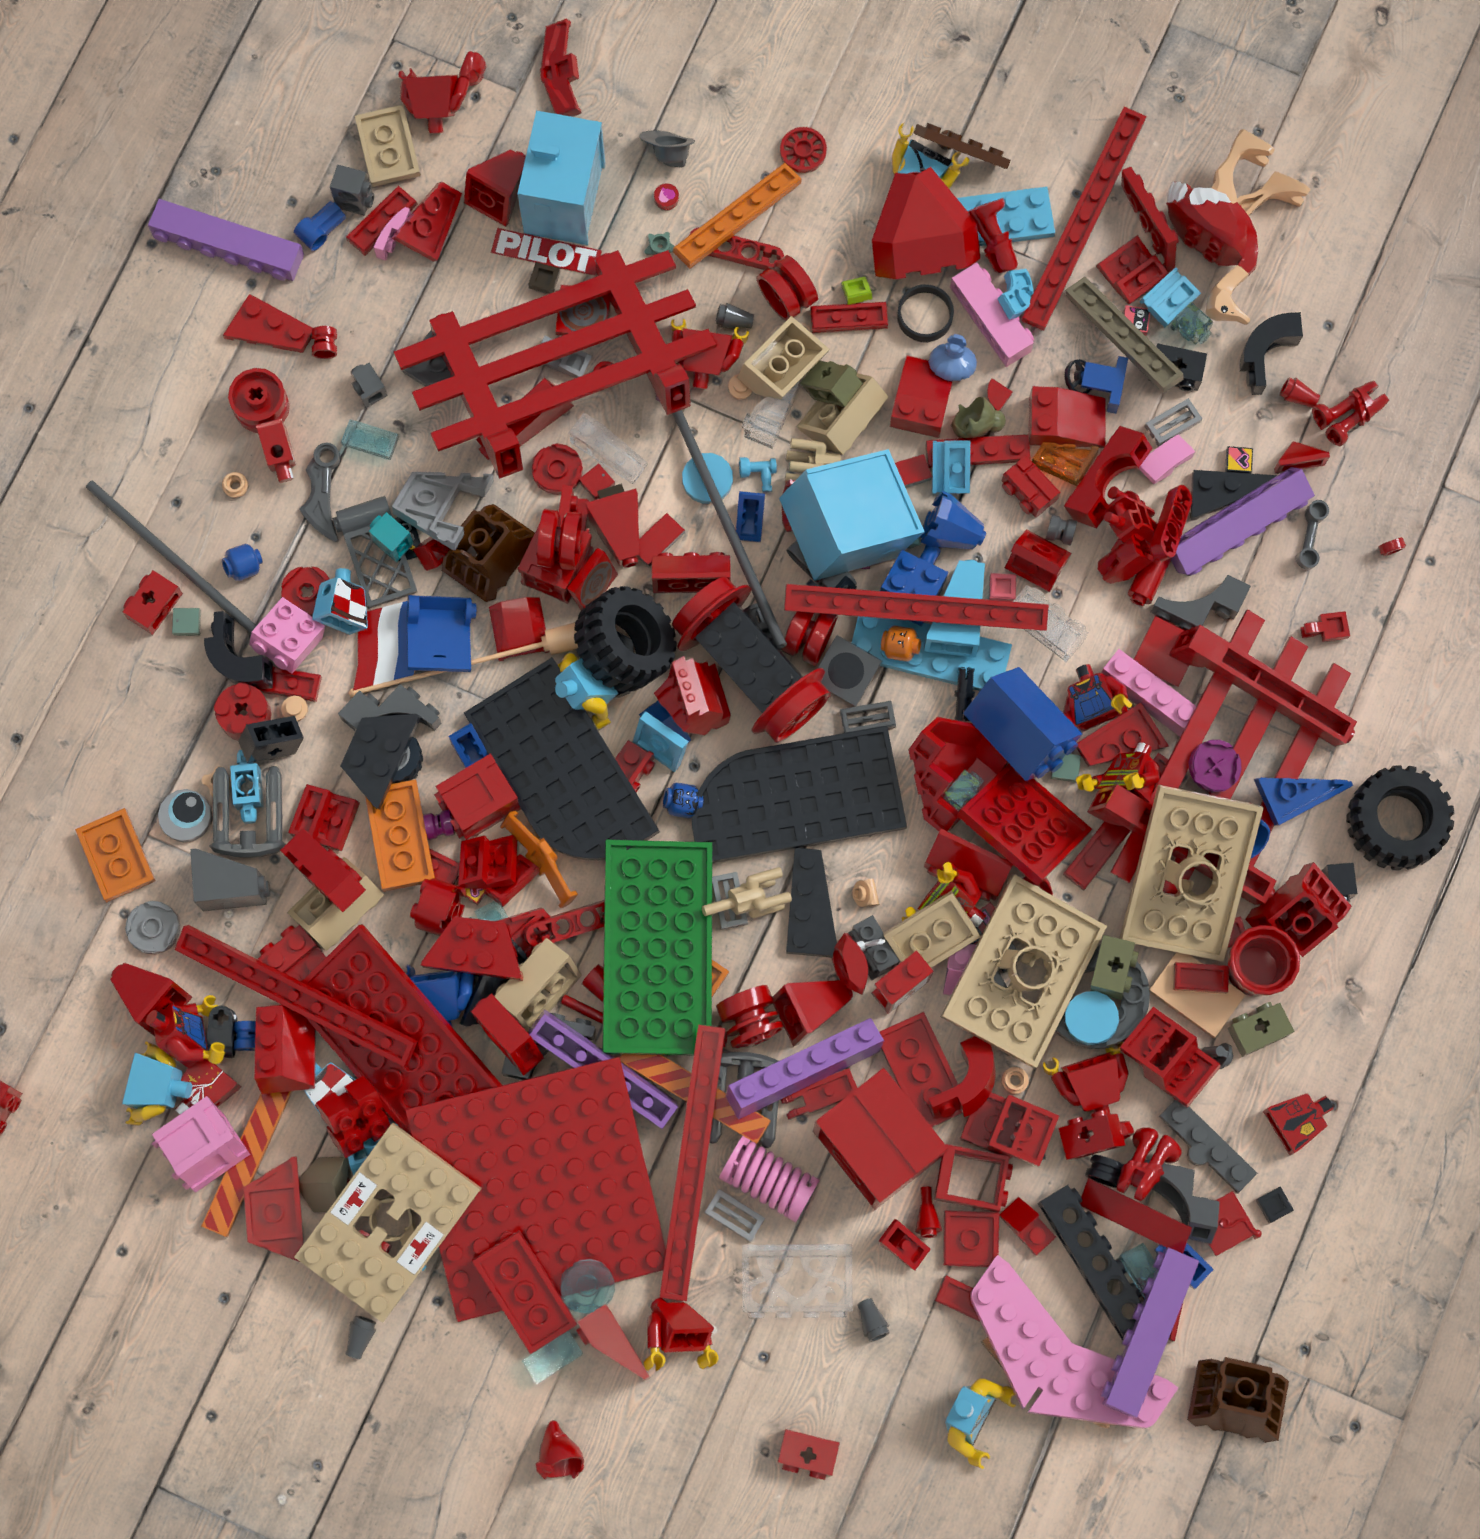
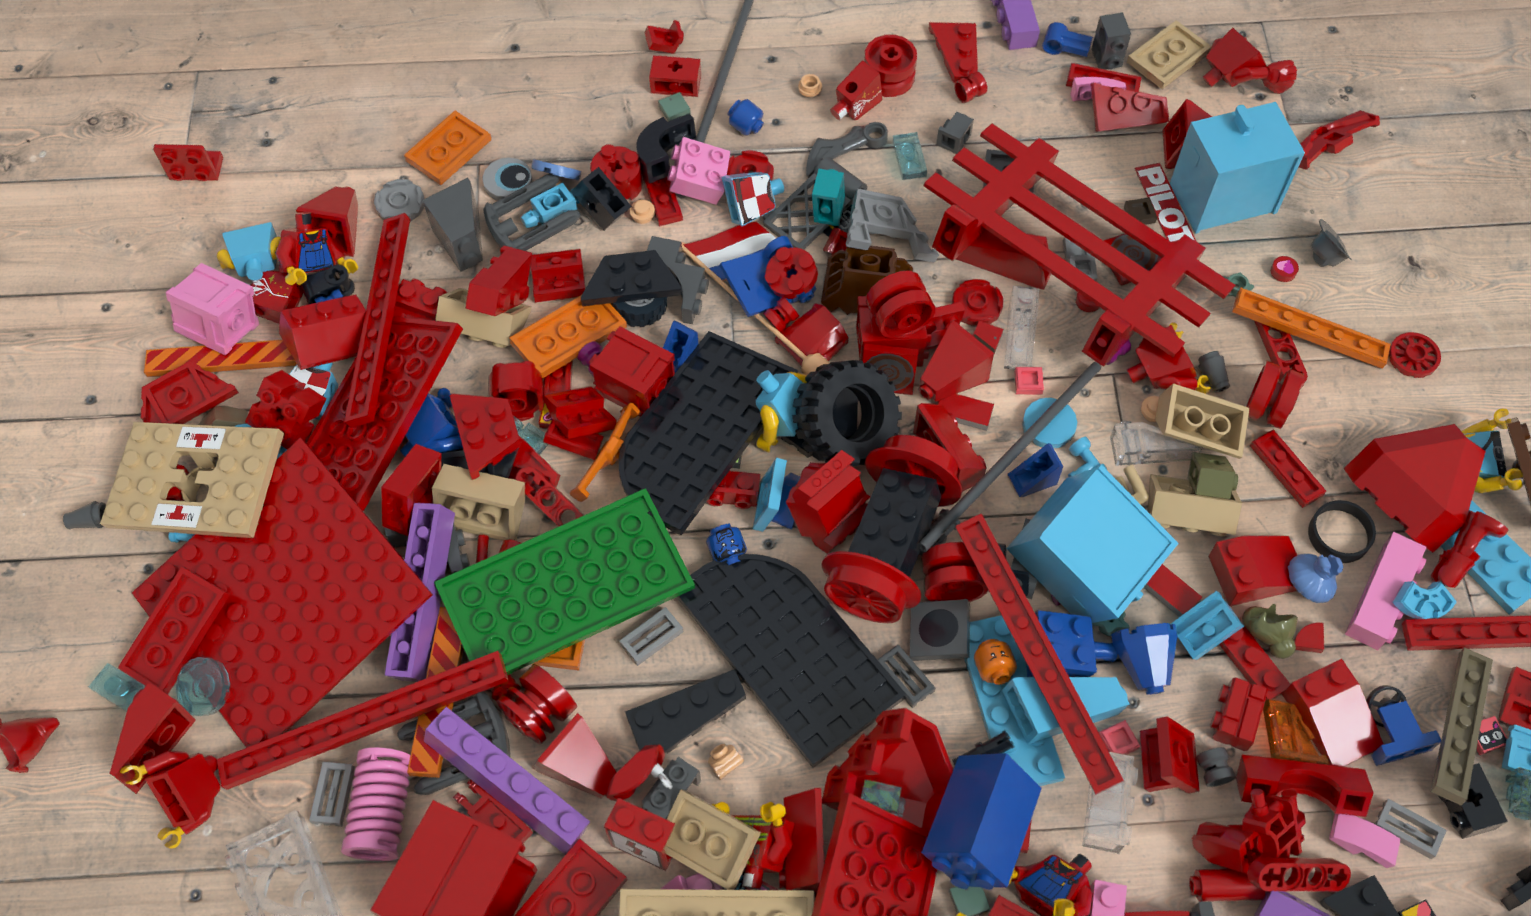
camera: 65 degrees right, 15 degrees down
(98, 589) = (664, 39): none -> red bracket
(207, 763) = (556, 169): none -> medium blue tile
(435, 610) = (789, 259): none -> red plate
(483, 642) = (781, 314): none -> red wheel
(657, 471) = (1029, 380): none -> coral tile
(751, 897) = (659, 647): tan plant -> none
(856, 290) = (1318, 460): lime tile -> none

